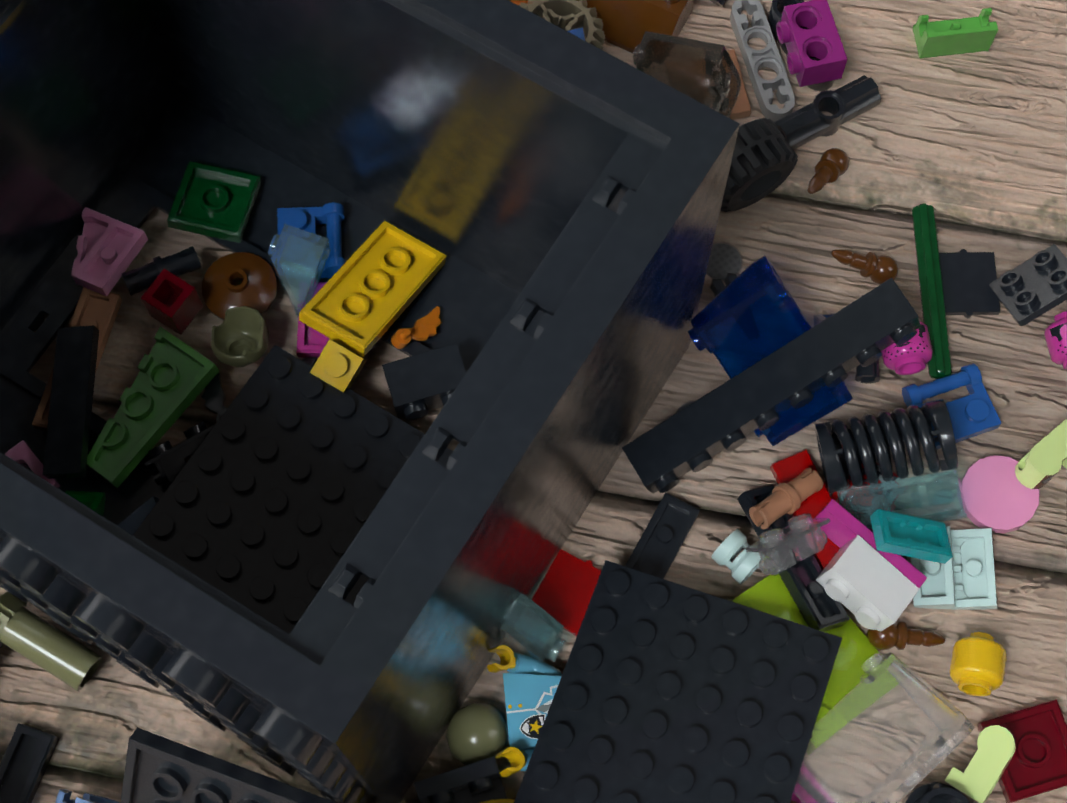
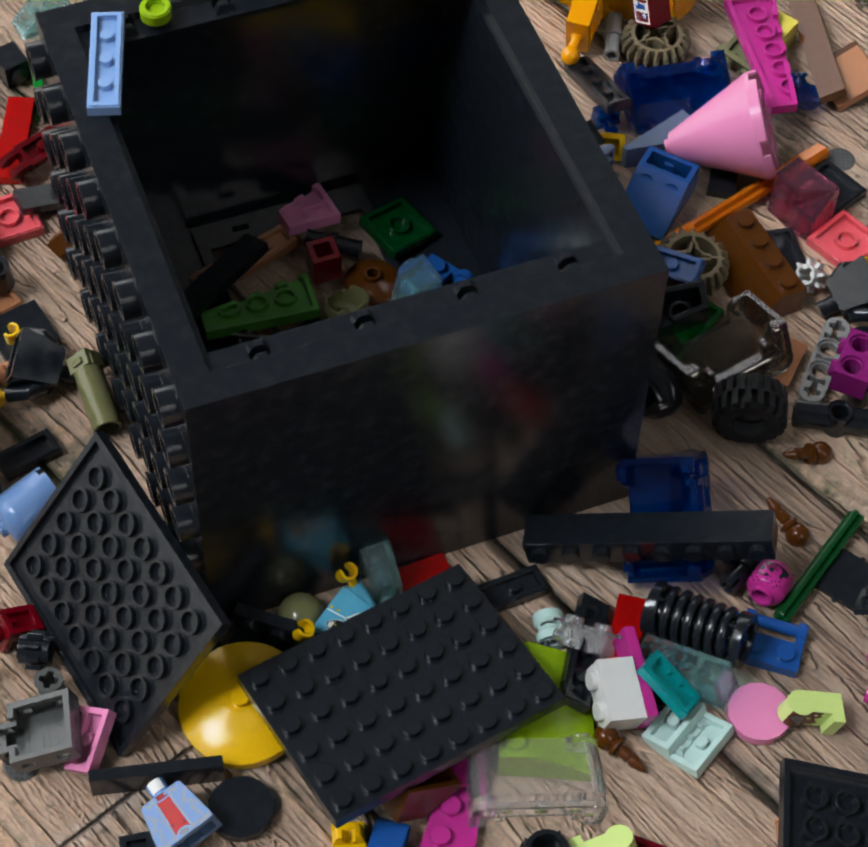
camera: 35 degrees right, 15 degrees down
(786, 498) = (607, 611): nougat pin -> none
(978, 664) = (652, 795): yellow head -> none

